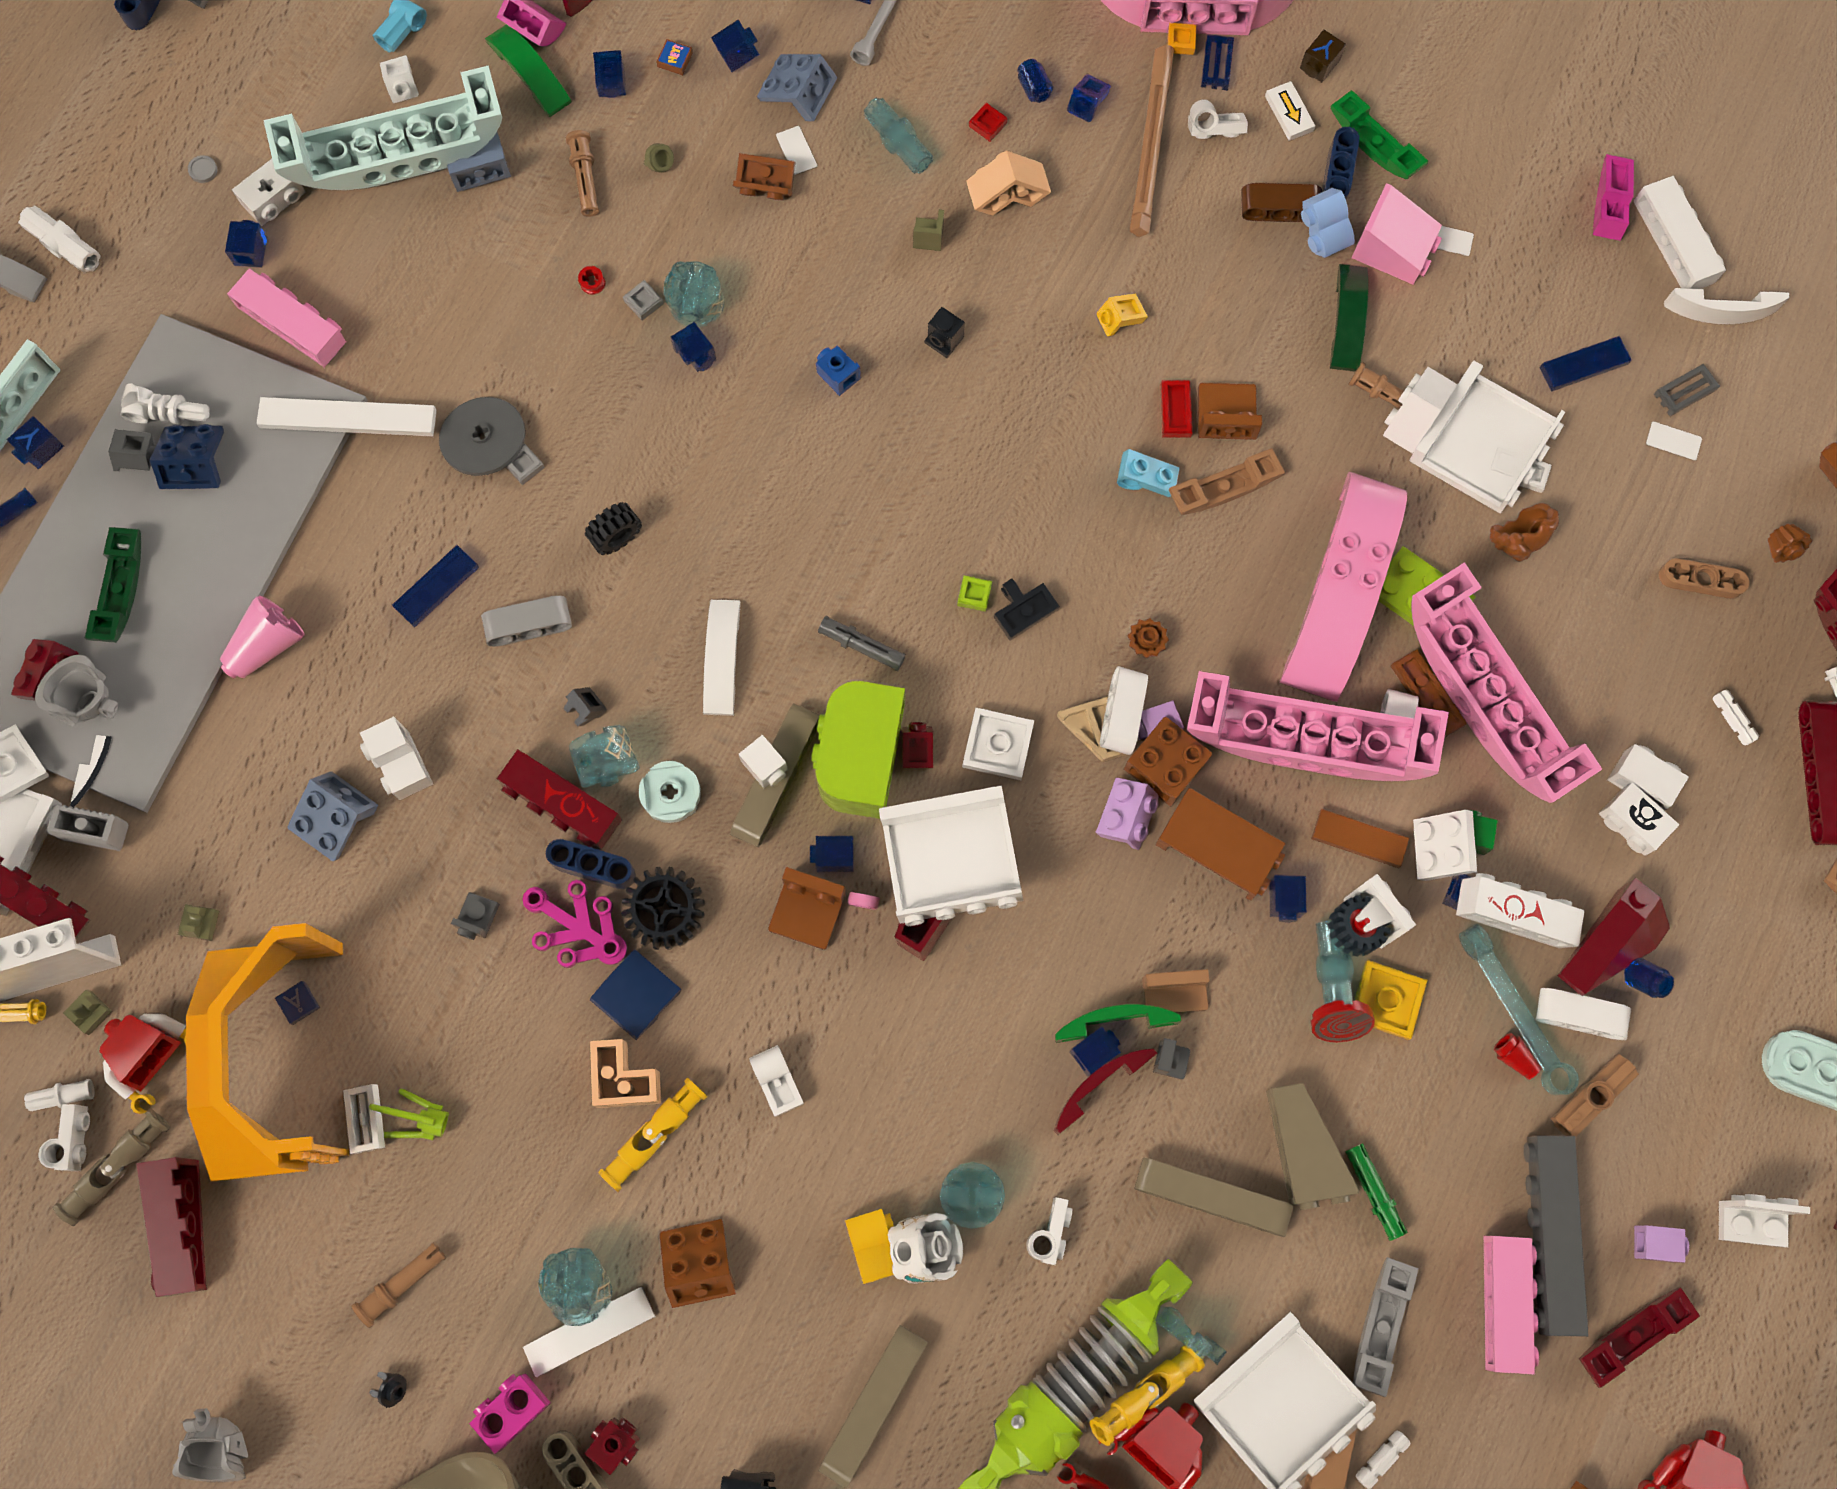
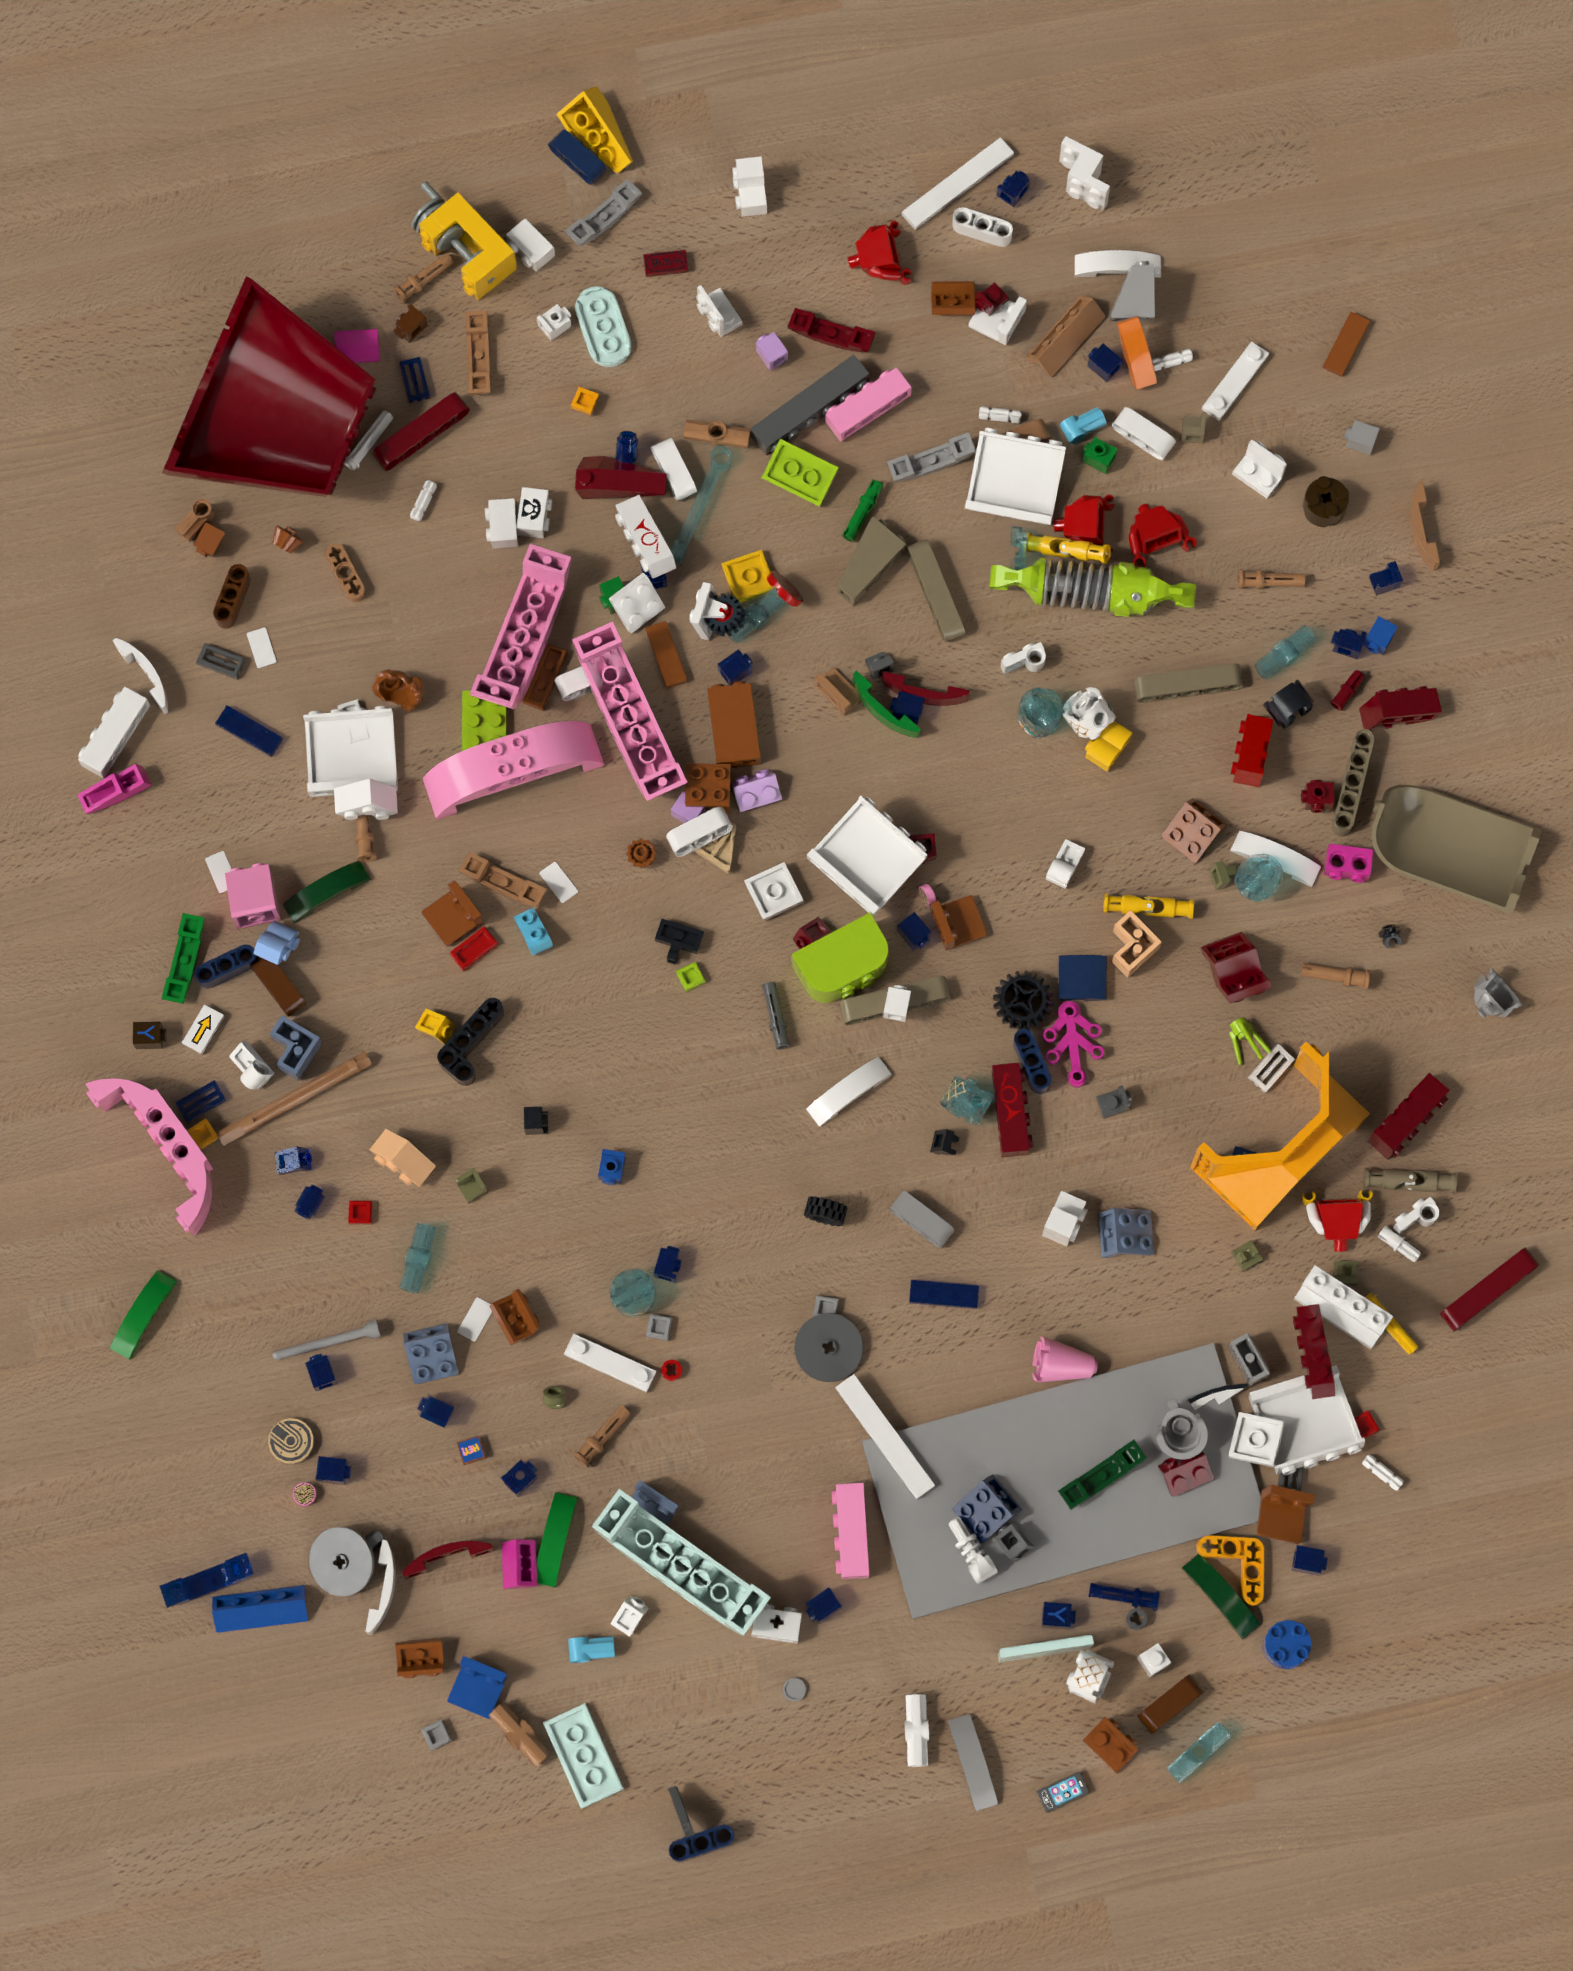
camera: 125 degrees left, 0 degrees up
(498, 1170) = (1236, 967): none -> dark red bracket
(618, 1248) = (1222, 875): none -> olive tile
(647, 232) = (610, 1363): none -> white plate
(660, 806) = (953, 1040): light aqua plate -> none
(732, 1413) = (1252, 750): none -> red wedge
(1080, 337) = (474, 1037): none -> black beam
(1183, 542) = (558, 882): none -> white sticker
(1202, 173) = (299, 1044): none -> sand blue brick
(1476, 1153) = (800, 472): none -> lime plate
(1516, 1055) = (726, 488): red cone -> none
(1741, 979) = (584, 401): none -> light orange plate
(1760, 459) = (230, 586): none -> reddish brown beam

